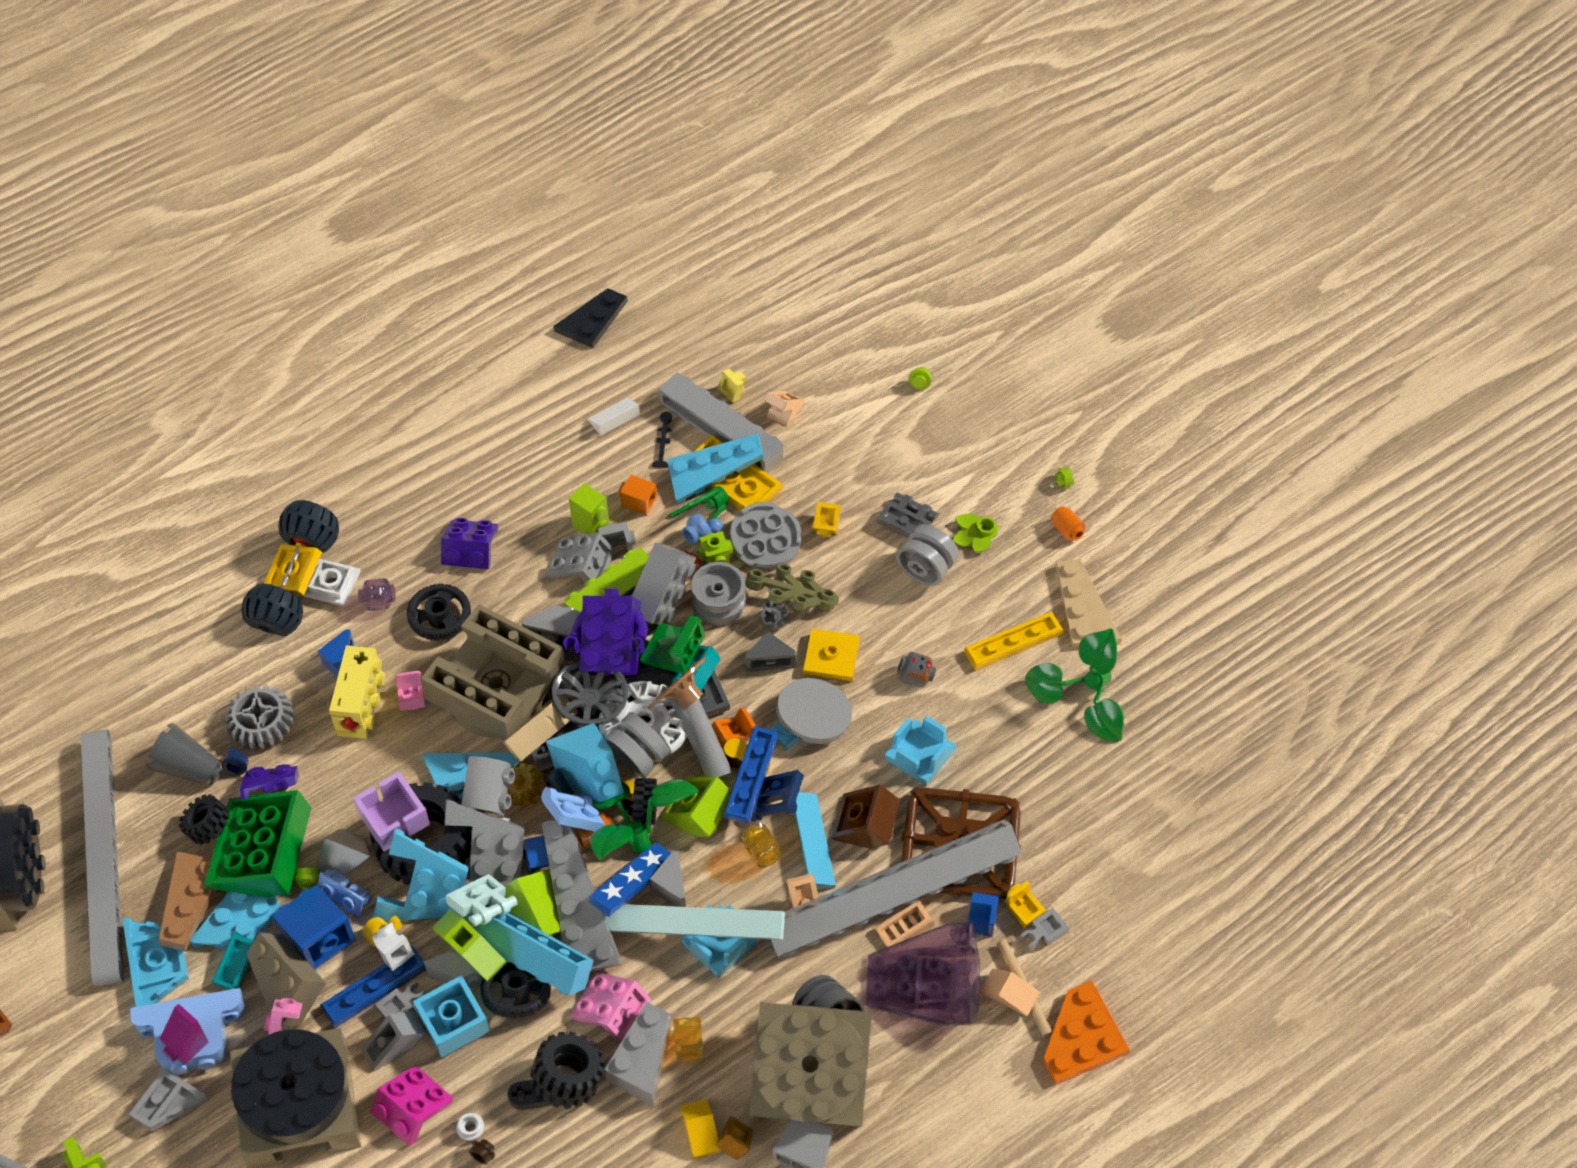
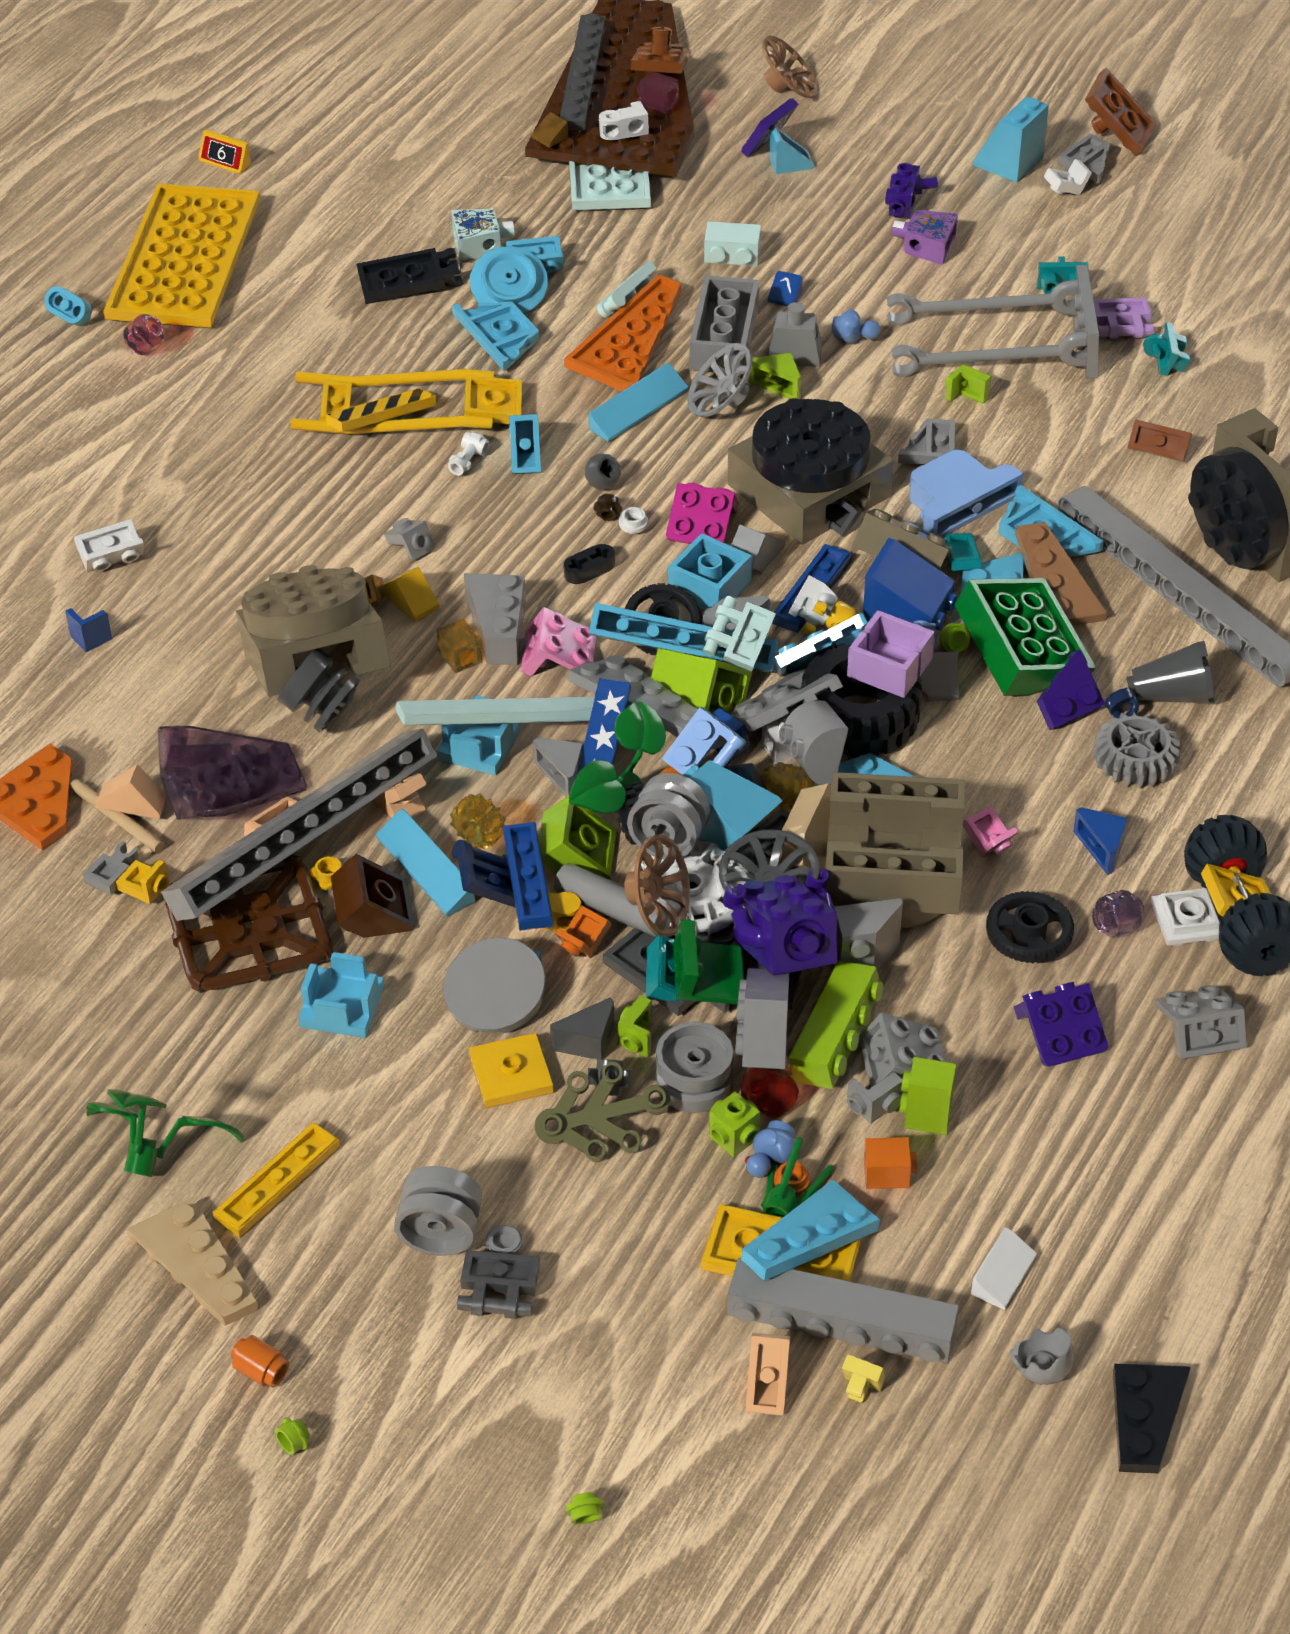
camera: 155 degrees right, 10 degrees down
(182, 1036) = (943, 453): magenta slope -> none
(204, 819) = (1101, 635): black tyre -> none
(282, 1008) = (865, 496): bright pink bracket -> none
(357, 692) = (1045, 795): light yellow piece -> none
(381, 512) = (1204, 1021): none -> light grey bracket
(399, 1002) = (773, 575): light grey plate -> none
(469, 944) = (705, 603): lime slope -> none
(560, 1086) = (558, 549): black tyre -> none
(628, 353) = (1044, 1356): none -> light grey hair
(665, 418) = (911, 1269): black piece -> none
(700, 508) = (799, 1174): none -> orange plate
(737, 647) = (633, 1026): none -> lime bracket
(765, 536) = (682, 1180): light grey tile -> none
(826, 519) = (608, 1226): yellow bracket -> none
(884, 855) = (324, 870): none -> yellow plate
(891, 543) = (504, 1240): none -> light grey tile
(916, 669) = (389, 1081): dark grey head -> none
(973, 533) = (395, 1301): lime plate -> none
(983, 913) = (187, 859): blue panel -> none

